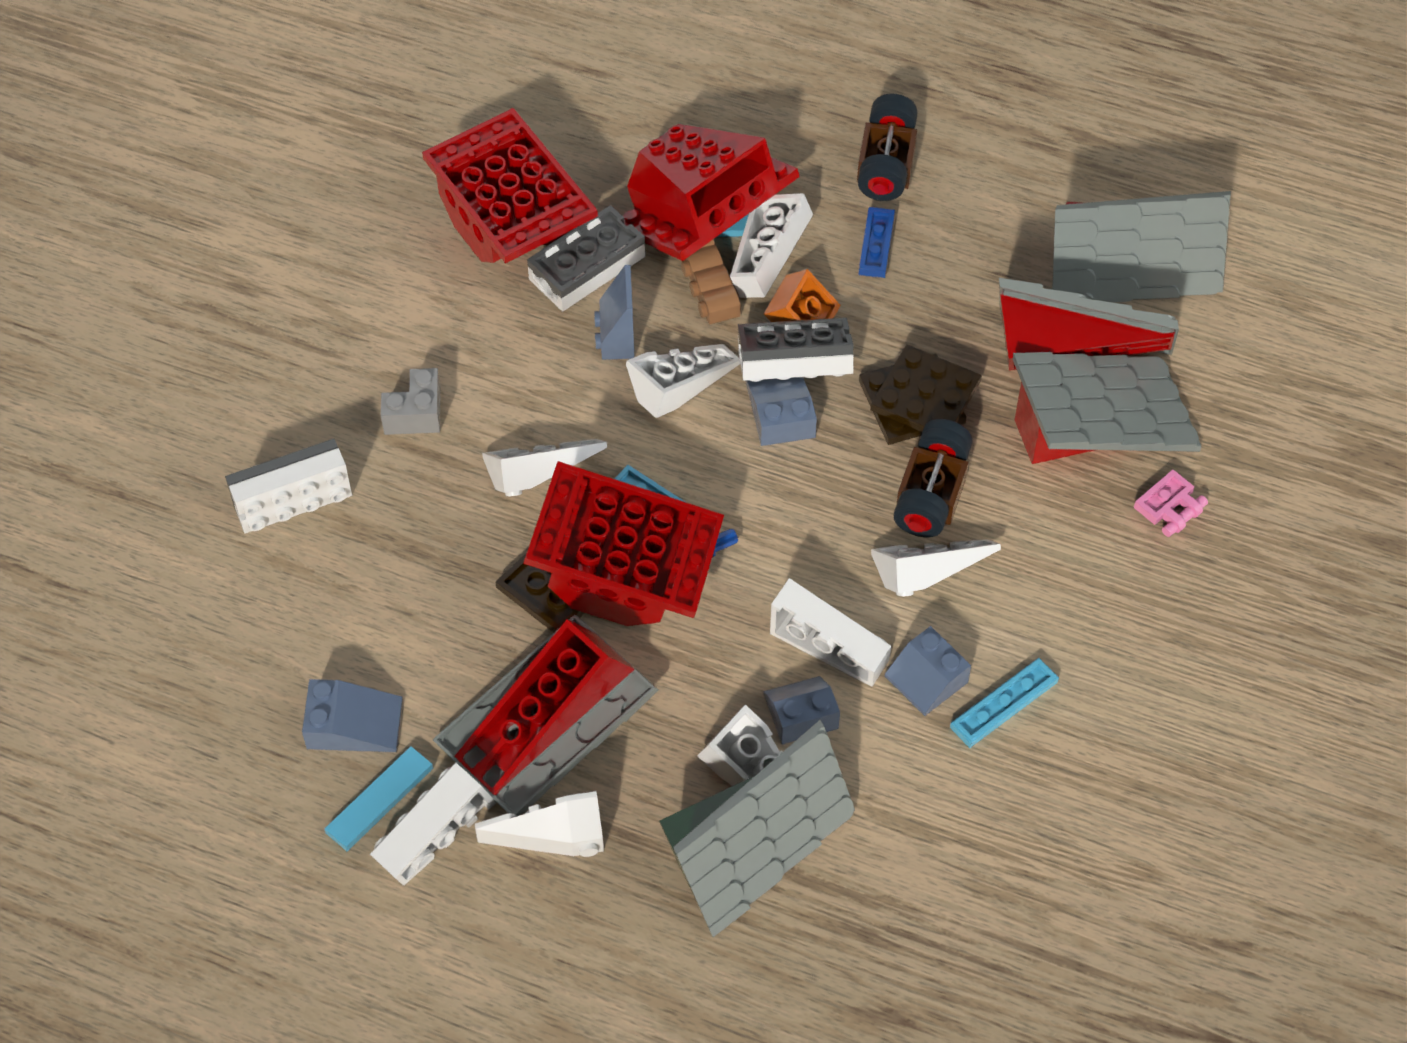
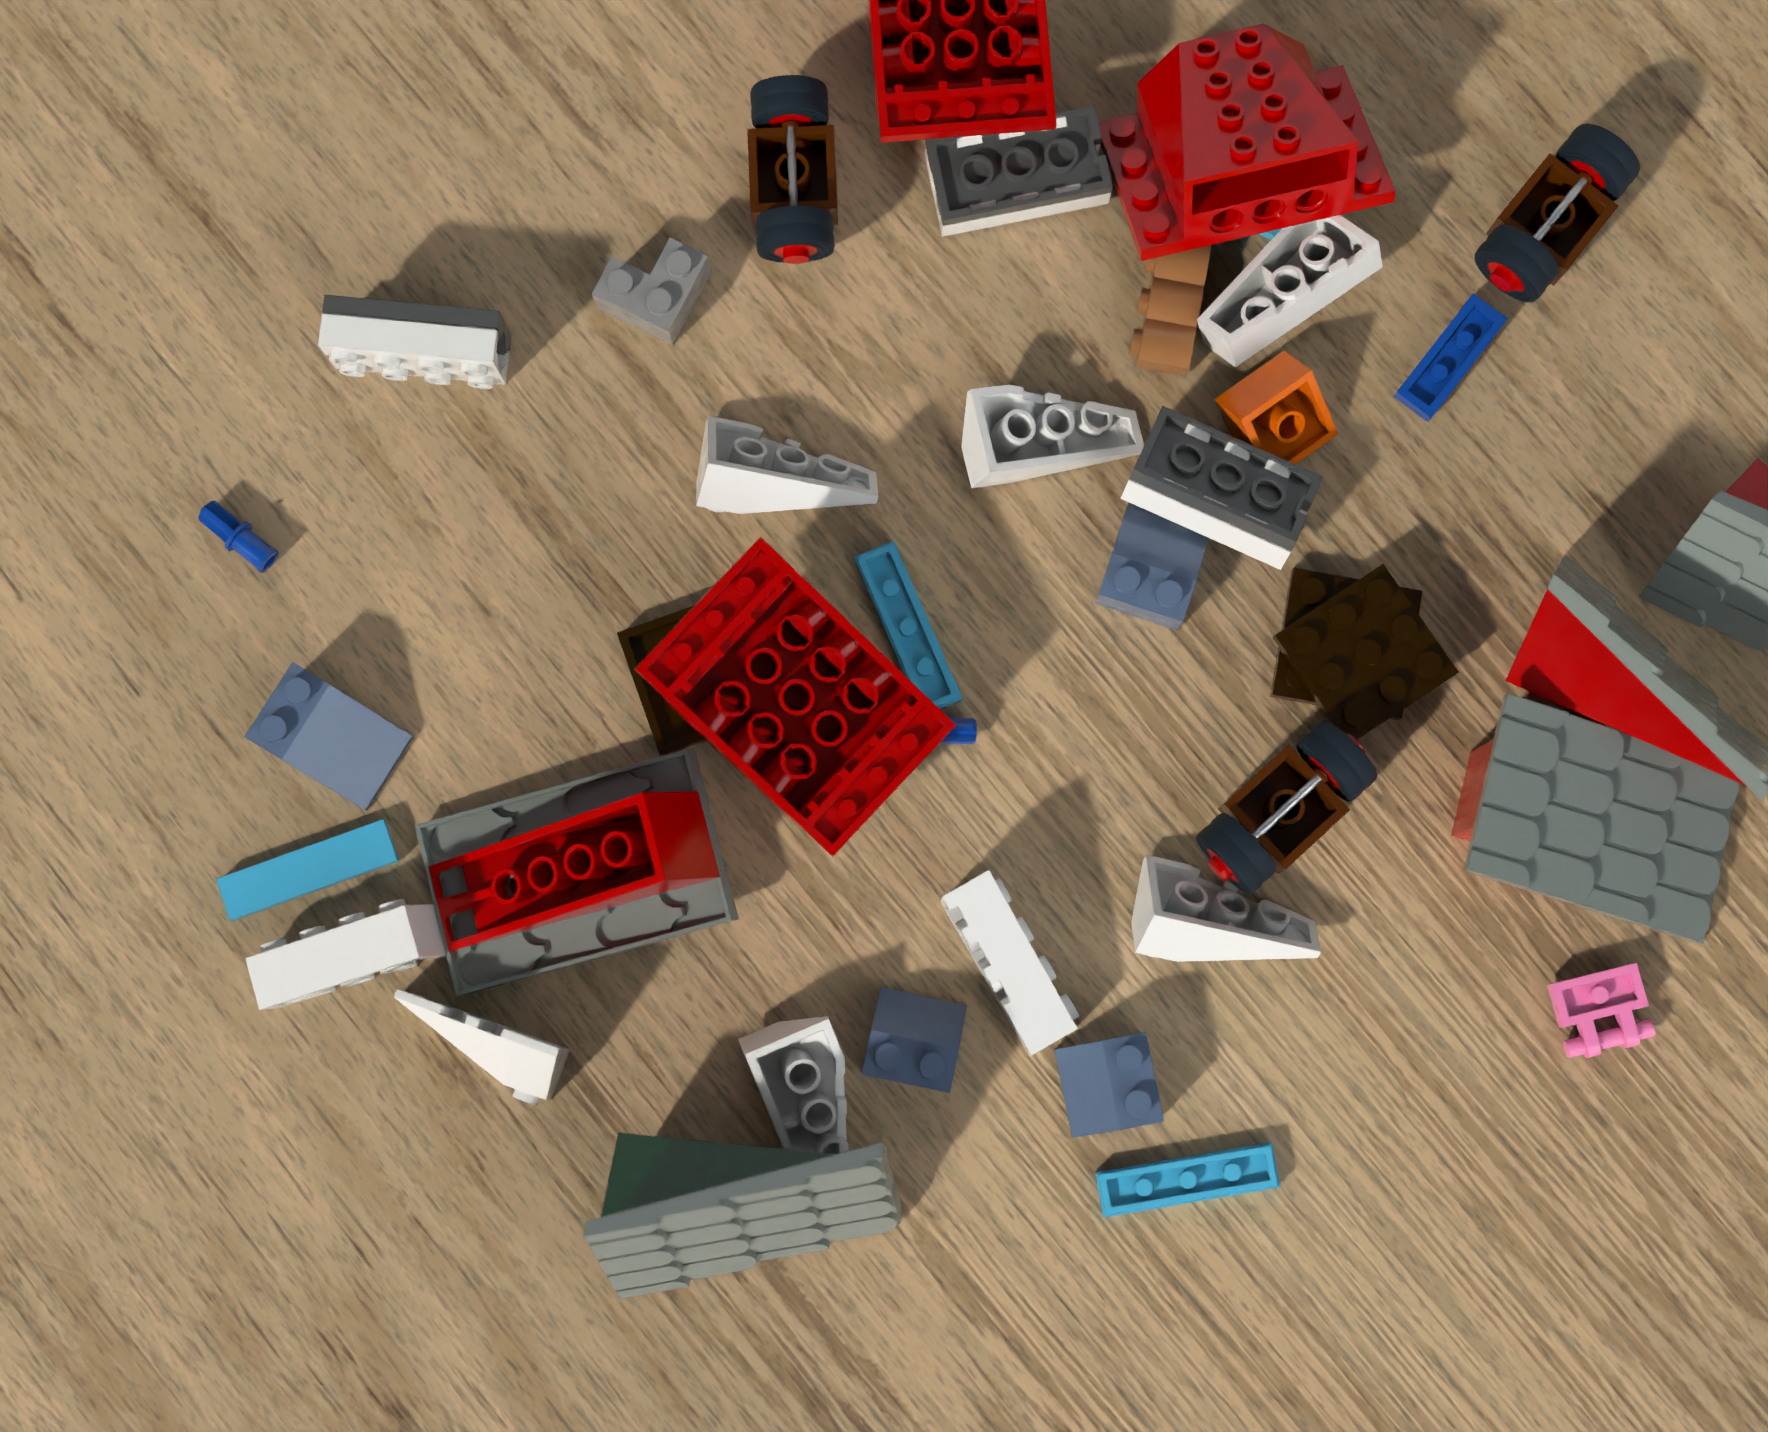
camera: 30 degrees right, 25 degrees up
(234, 641) = (238, 536): none -> blue axle
(459, 308) = (792, 169): none -> brick
(616, 319) = (1000, 304): sand blue slope -> none

